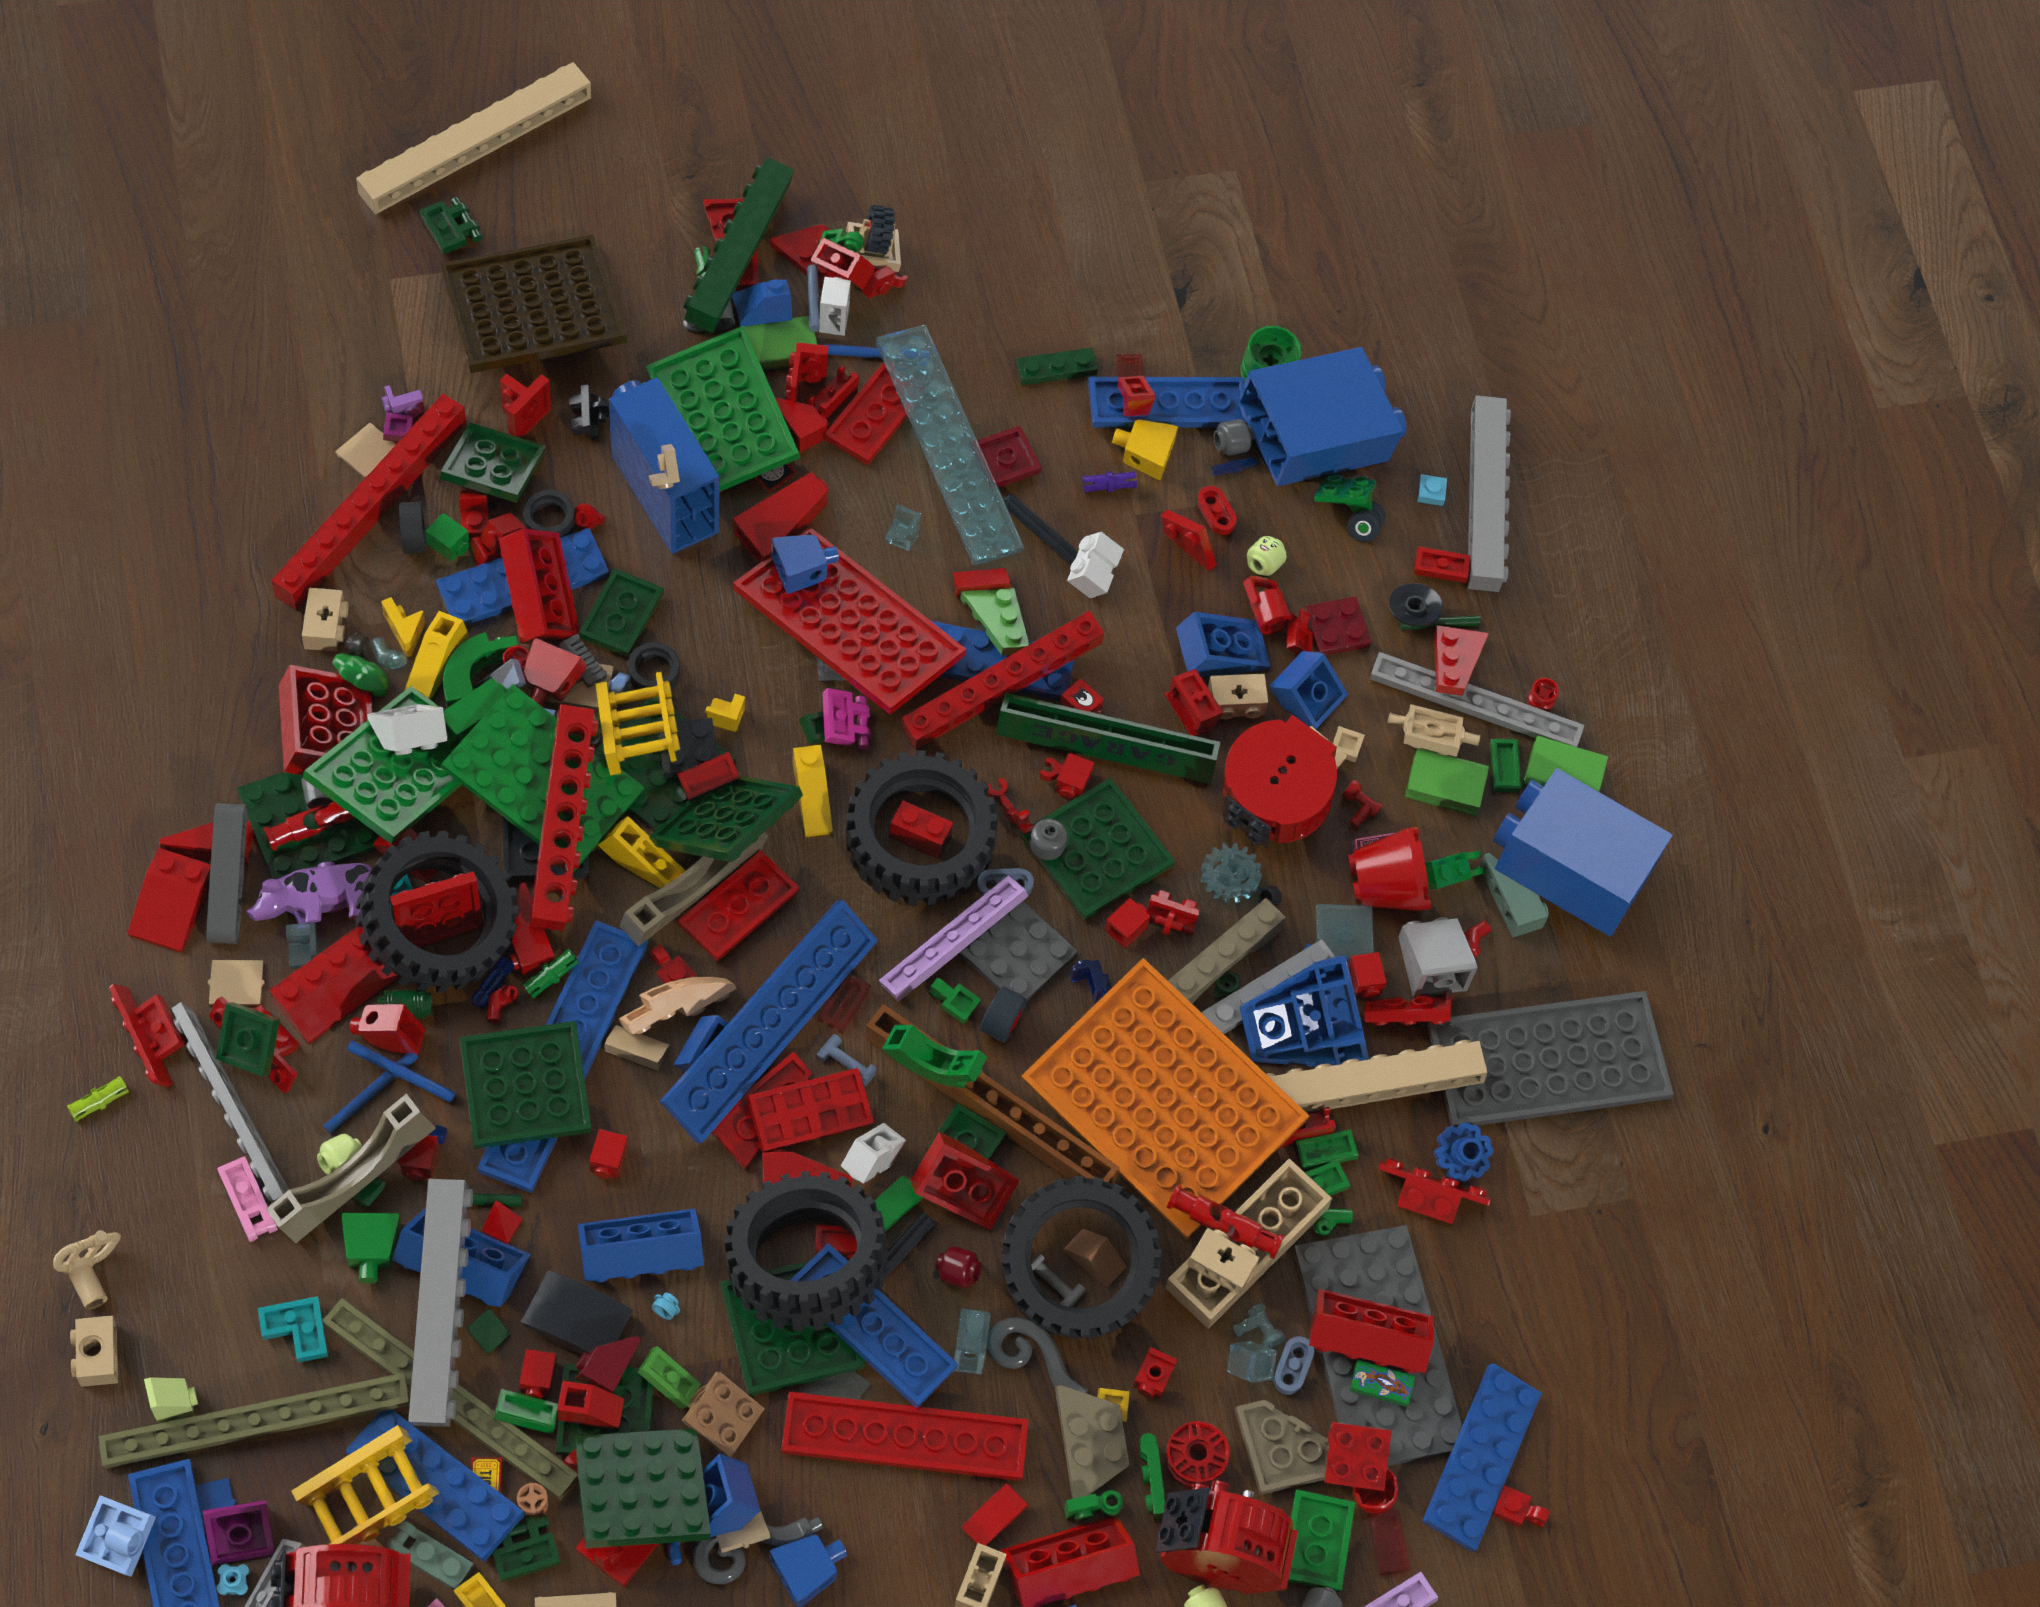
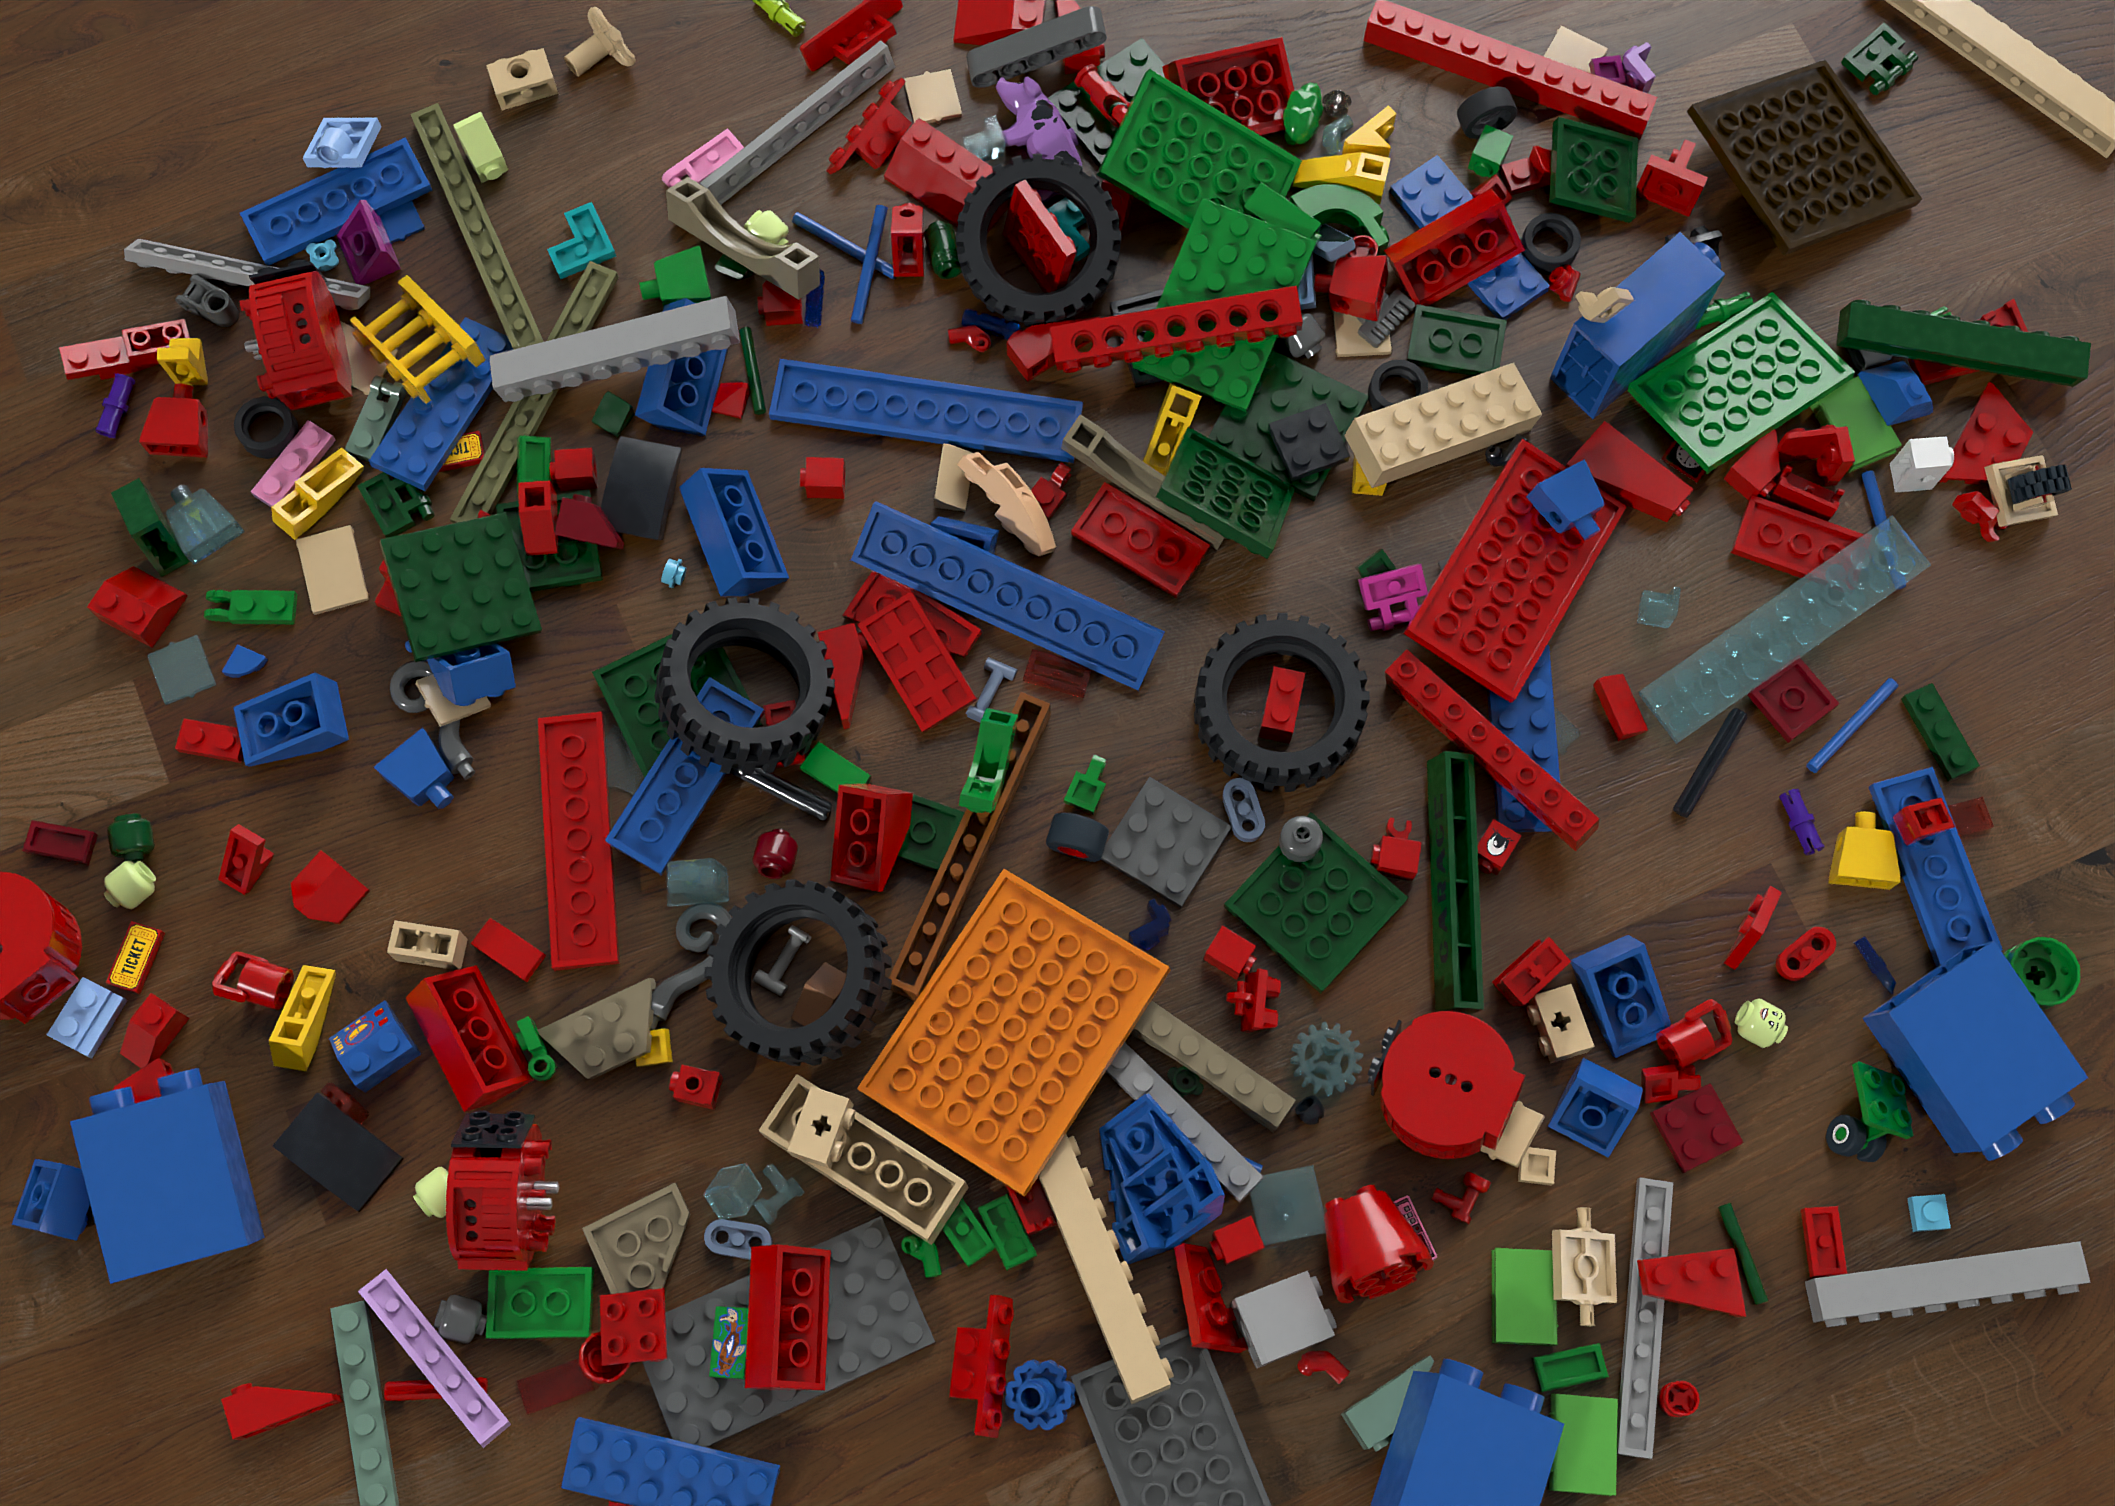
camera: 85 degrees right, 10 degrees up
(247, 1039) = (859, 111): dark green plate -> none
(318, 632) = (1355, 63): tan brick -> none
(409, 728) = (1238, 160): white slope -> none
(498, 528) = (1515, 197): red brick -> none
(525, 1085) = (876, 377): dark green plate -> none
(531, 1494) = (438, 493): nougat wheel -> none
(551, 973) = (1011, 374): green pin -> none
(614, 735) = (1315, 352): yellow fence -> none
(620, 683) = (1365, 361): medium blue tile -> none
(669, 1377) = (591, 590): bright green plate -> none
(704, 639) = (1442, 425): none -> tan brick
(708, 775) = (1277, 468): red tile -> none
(722, 1414) = (564, 652): medium nougat plate -> none
(736, 603) = (1499, 456): none -> black arm
(811, 778) = (1299, 582): yellow slope -> none
(813, 298) = (1952, 436): sand blue bar -> none
(843, 263) = (1975, 456): red slope -> none
(851, 240) = (2007, 447): green plate -> none
(873, 1153) = (884, 736): white brick -> none
(953, 938) = (1158, 766): lavender plate -> none
(1000, 616) = (1575, 734): bright green wing -> none
(1012, 815) = (1331, 803): red piece -> none
(1036, 424) = (1852, 725): none -> blue bar
(1094, 564) = (1680, 824): white brick -> none
(1152, 1475) = (580, 1107): green hinge -> none
(1202, 1437) = (595, 1139): red wheel -> none
(1233, 437) = (1913, 953): dark grey head -> none
(1234, 1225) = (863, 1141): red piece -> none
(1415, 604) = (1763, 1207): black dish -> none
(1452, 869) = (1398, 1319): green hinge -> none

